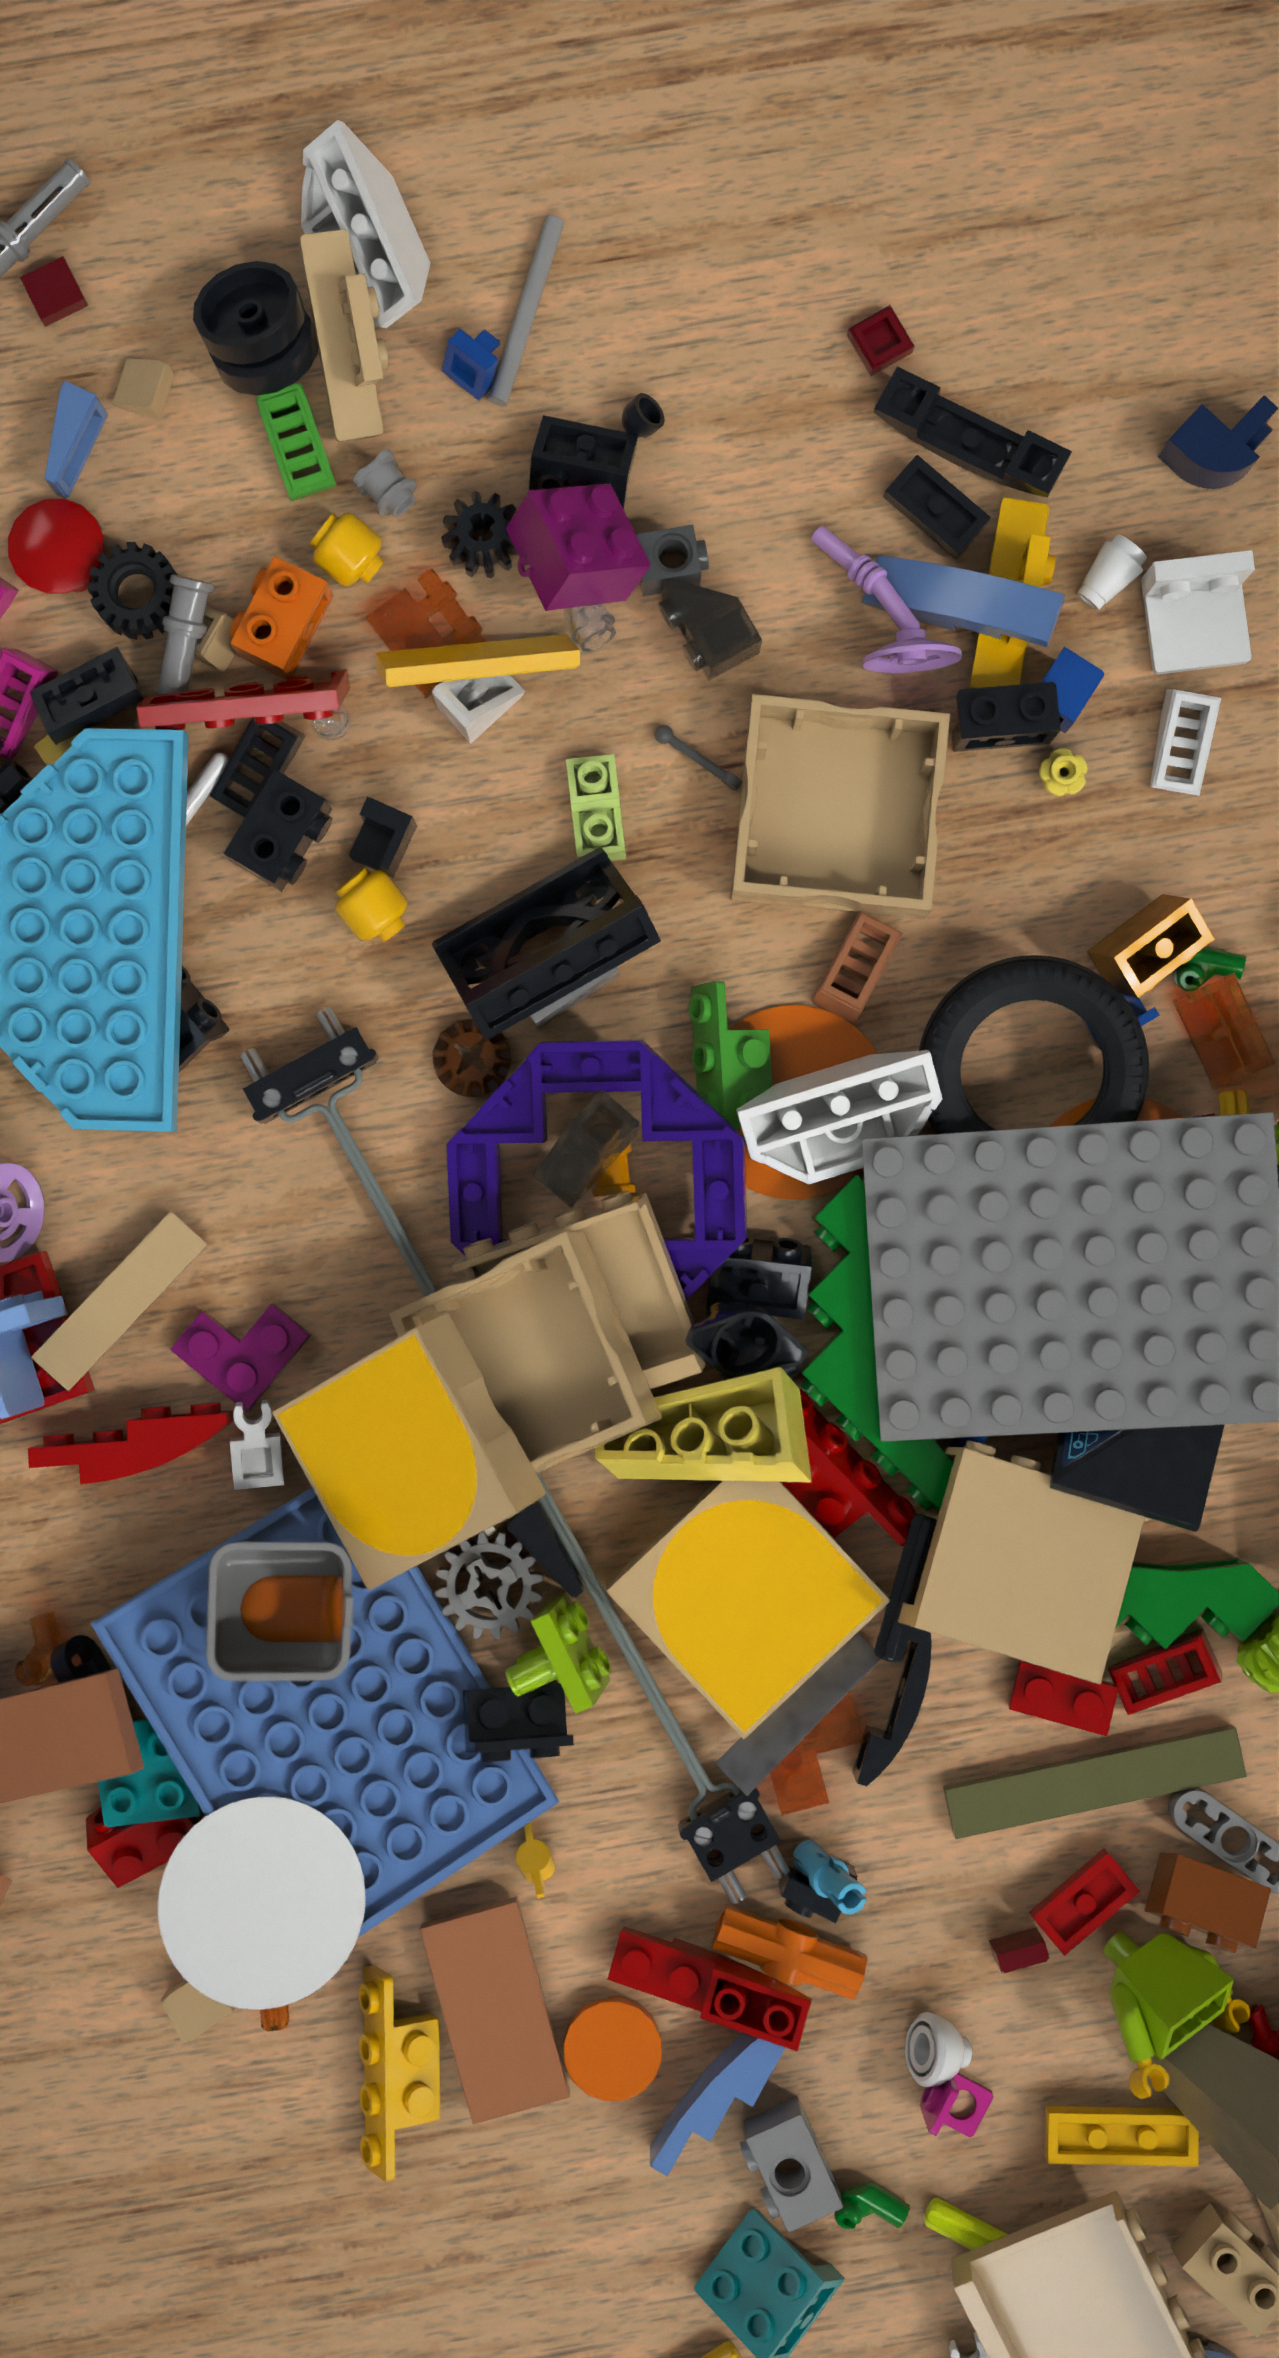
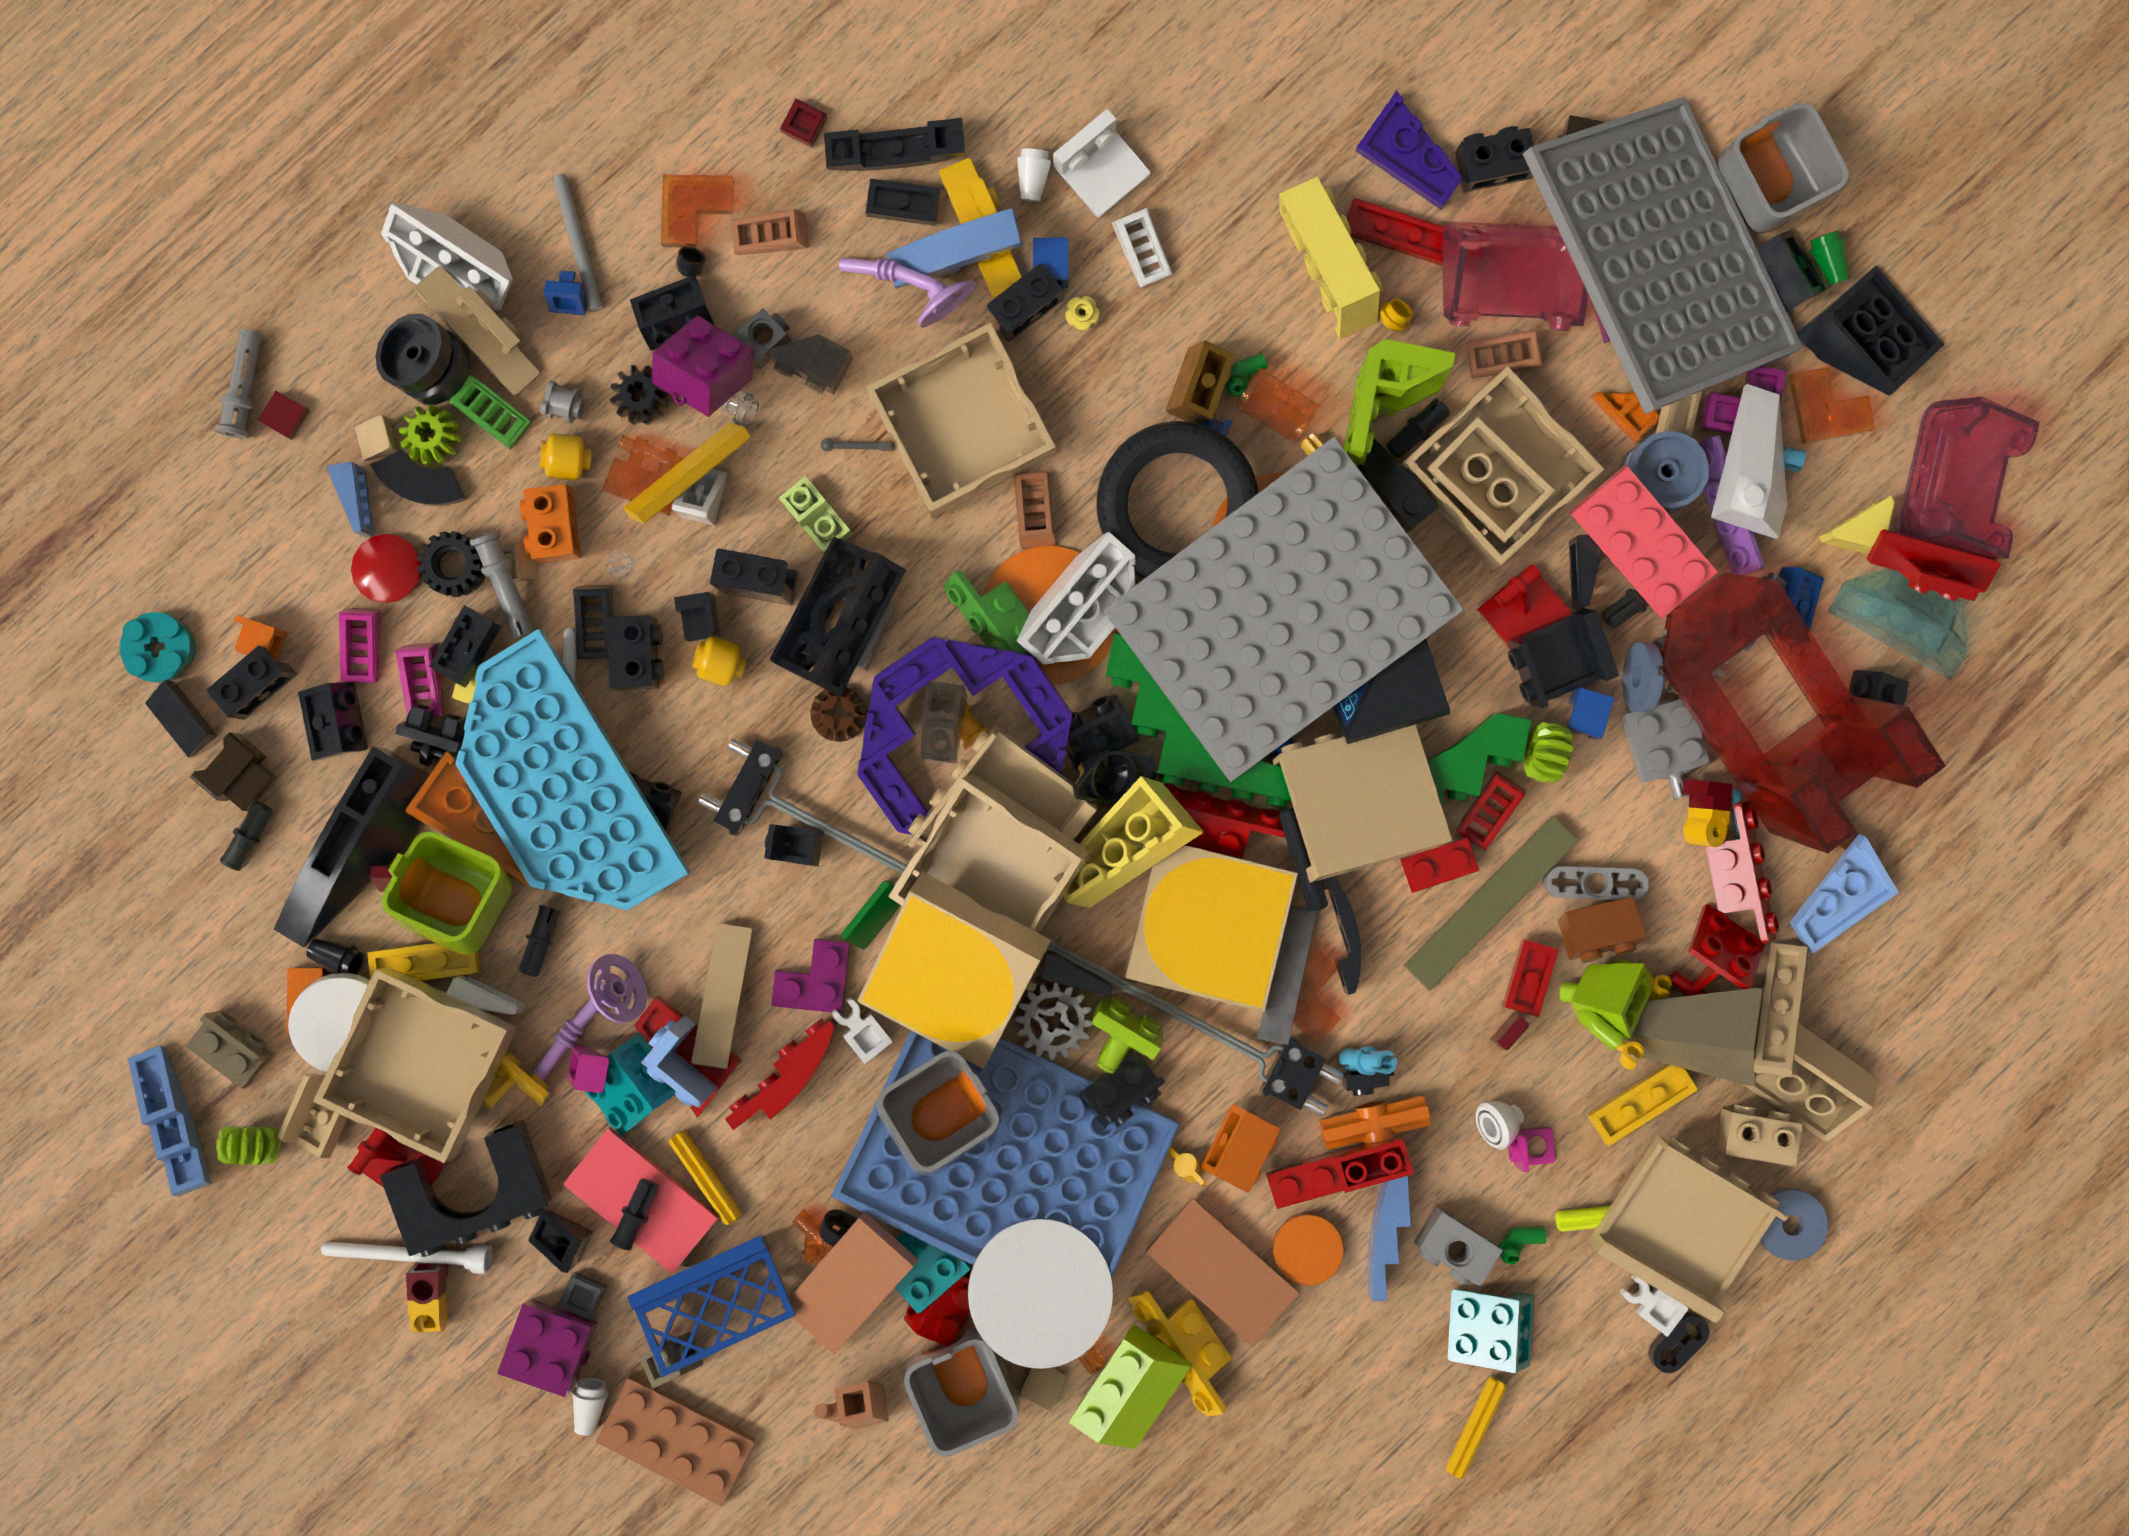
camera: 30 degrees left, 0 degrees up
(91, 1958) = (961, 1394): none -> light grey piece
(157, 471) = (416, 483): none -> black tile
(207, 405) = (417, 430): none -> lime gear
(245, 701) = (563, 587): red wing -> none
(294, 2081) = (1130, 1390): none -> lime slope
(318, 1178) = (793, 845): none -> black bracket
(355, 1322) = (871, 917): none -> green slope
(476, 832) = (753, 577): none -> black panel
(610, 1880) = (1241, 1148): none -> orange brick
(685, 340) = (685, 199): none -> clear orange plate
(784, 436) = (786, 243): none -> nougat slope
(1212, 454) = (1051, 64): dark blue brick -> none

